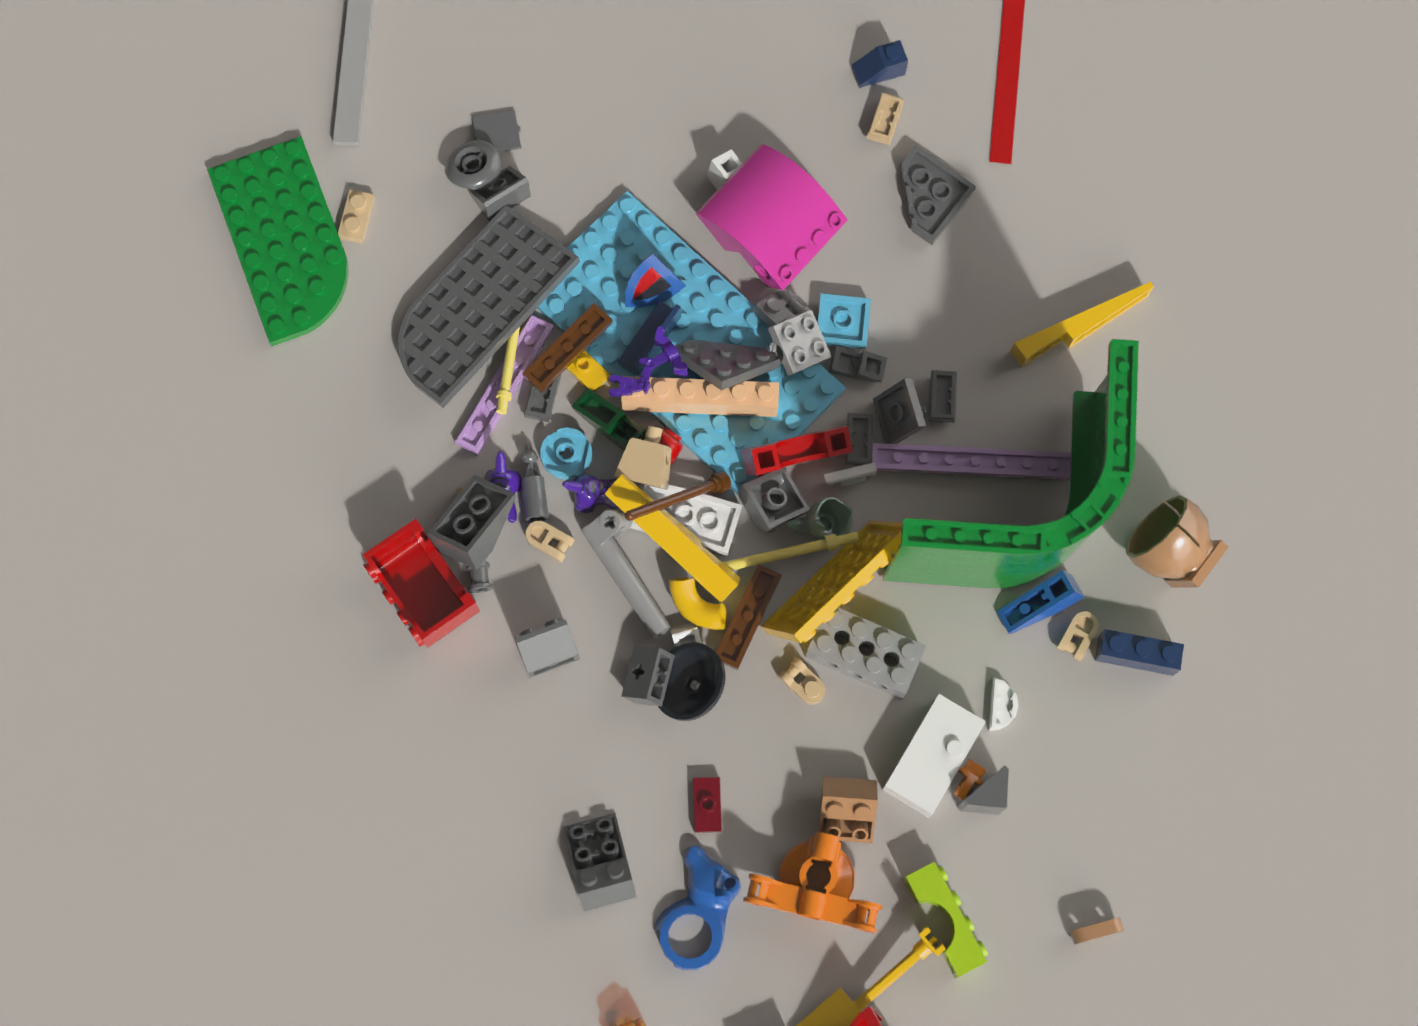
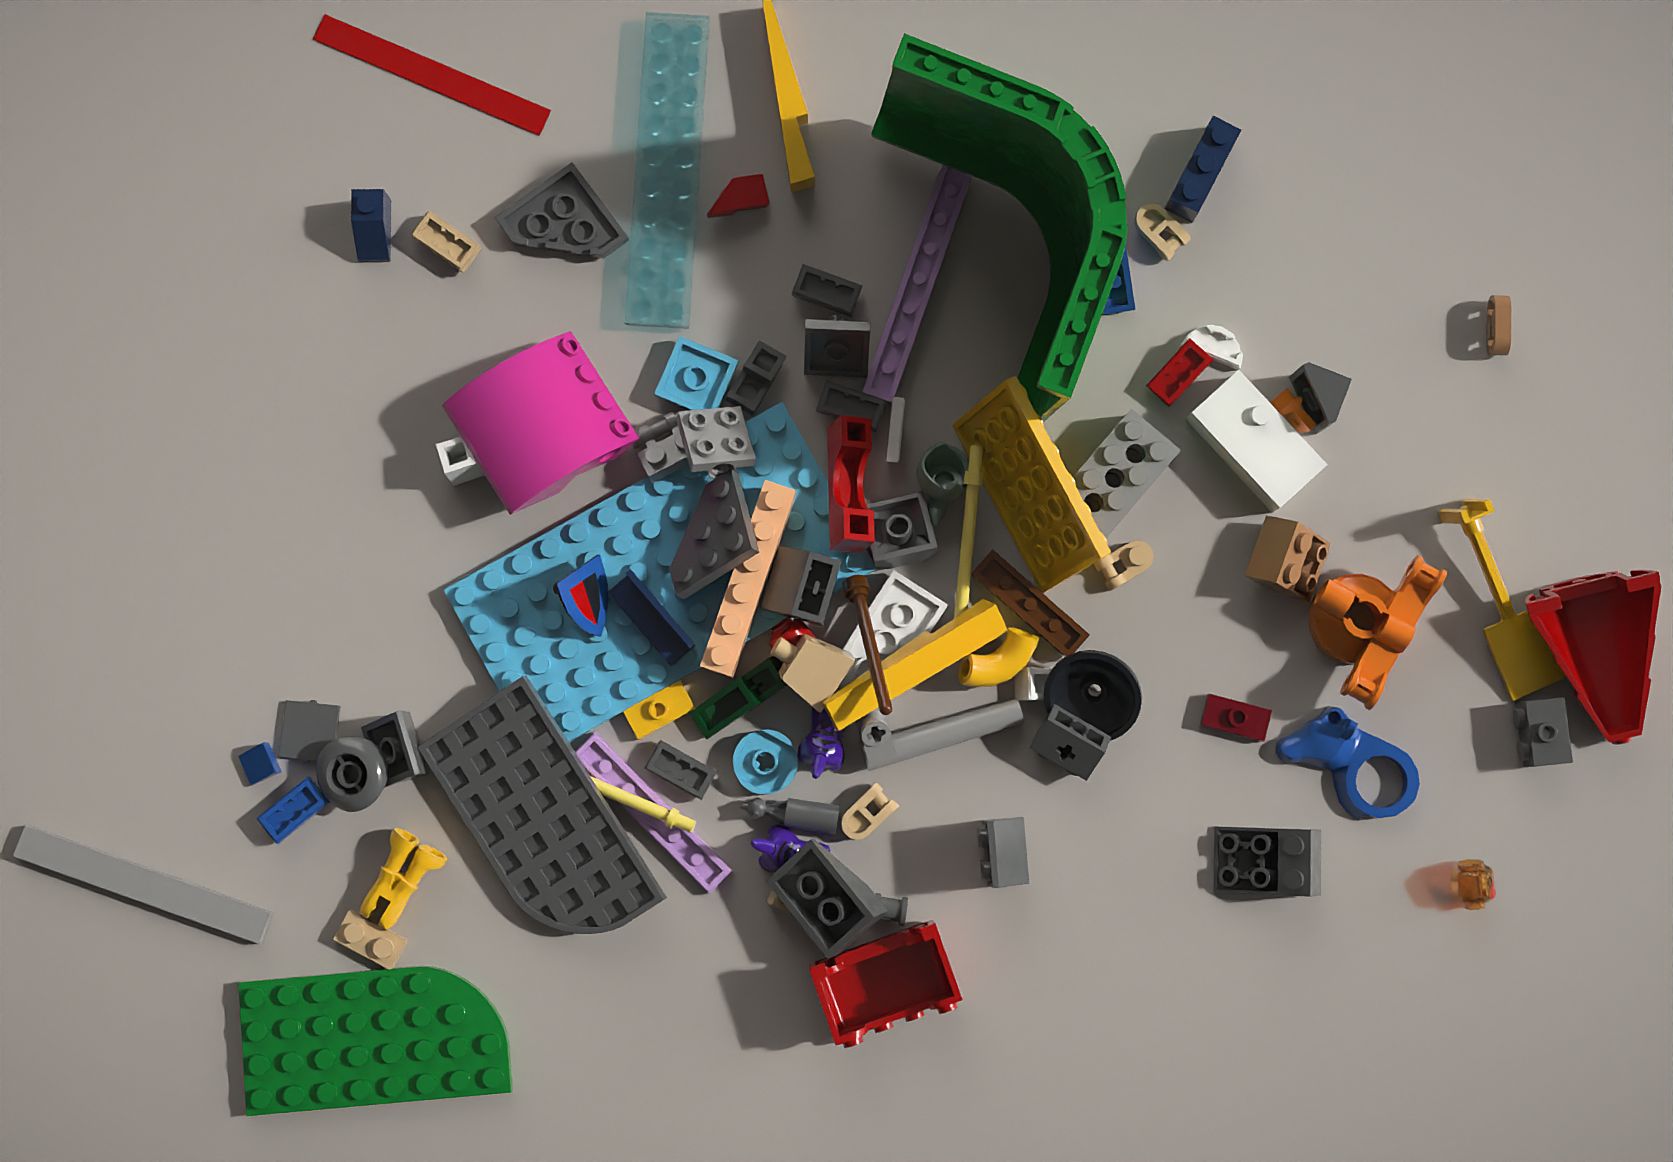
camera: 75 degrees left, 10 degrees up
(400, 221) = (396, 885): none -> yellow piece
(435, 136) = (293, 810): none -> blue plate
(464, 106) = (259, 763): none -> blue slope
(567, 348) = (635, 722): reddish brown plate -> none
(669, 353) = (719, 660): dark purple piece -> none
(707, 437) = (801, 585): none -> dark grey slope
(963, 950) = (1401, 495): lime arch -> none
(969, 681) = (1179, 372): none -> red plate
(994, 255) = (667, 170): none -> clear light blue plate
(994, 313) = (739, 195): none -> red slope
(1175, 544) = (1098, 77): medium nougat plate -> none

